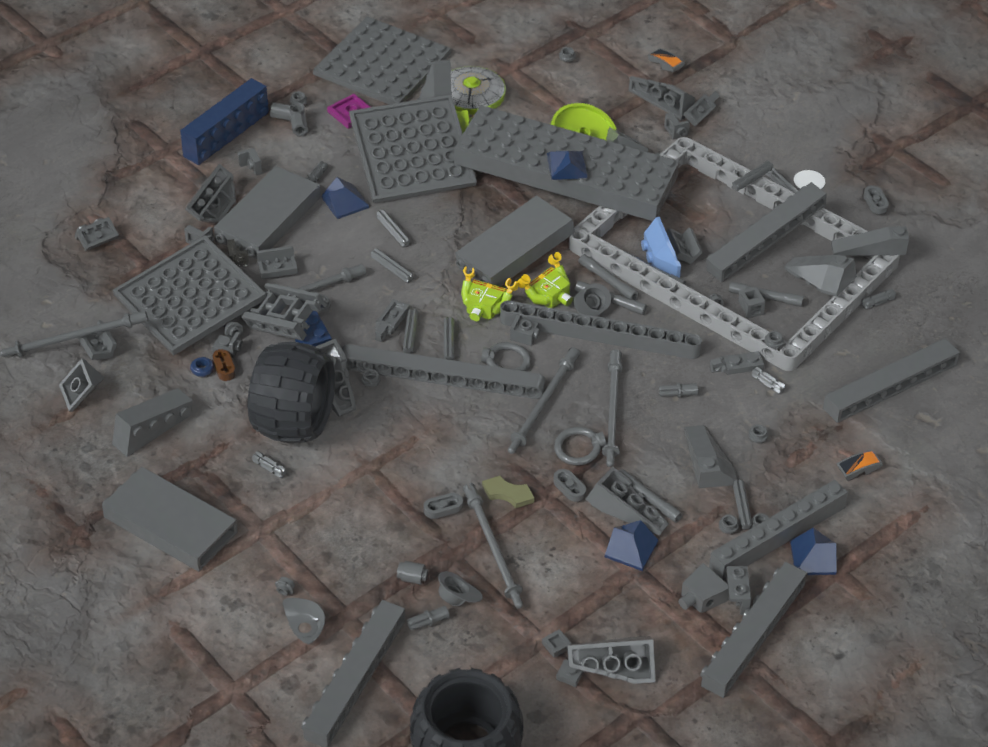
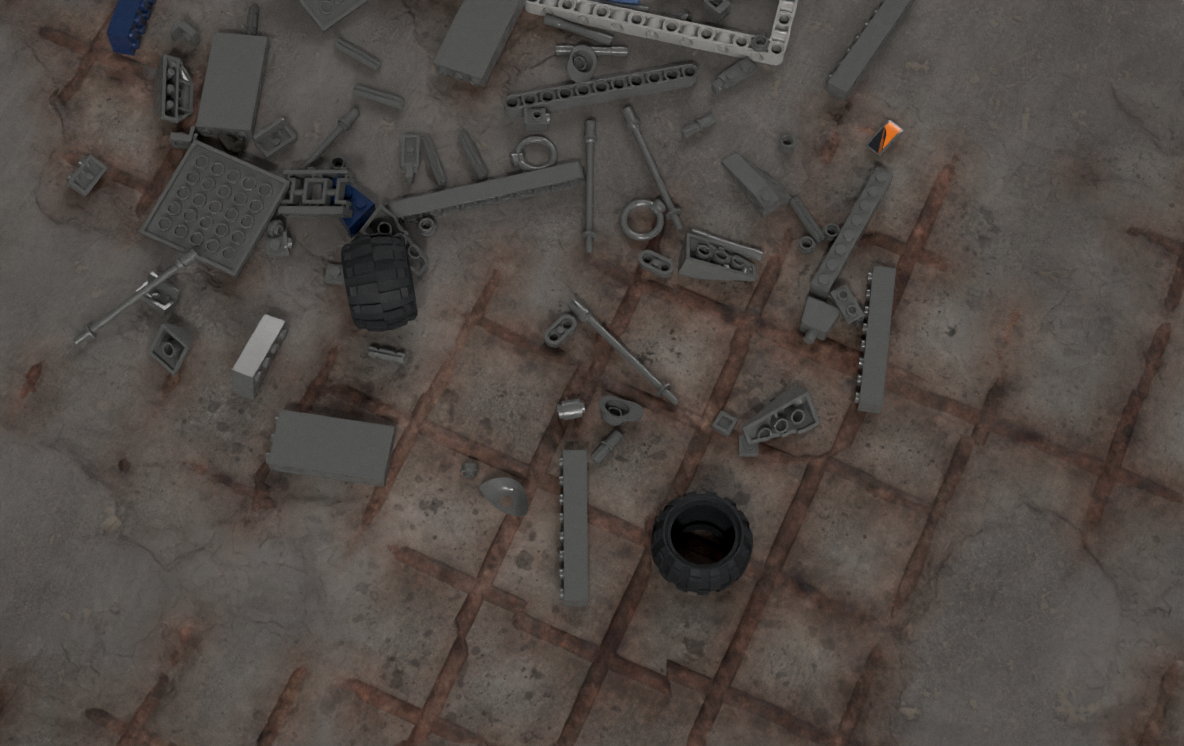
camera: 25 degrees left, 20 degrees up
(202, 372) = (268, 285): dark blue piece -> none
(226, 364) = (289, 265): reddish brown beam -> none
(343, 198) = (294, 40): dark blue slope -> none
(484, 298) = (483, 100): lime torso -> none
(500, 489) = (599, 292): olive tile -> none
(549, 287) = (534, 63): lime torso -> none
(631, 545) = (737, 301): dark blue slope -> none
(768, 380) = (768, 82): axle -> none
(814, 553) = (889, 244): dark blue slope -> none

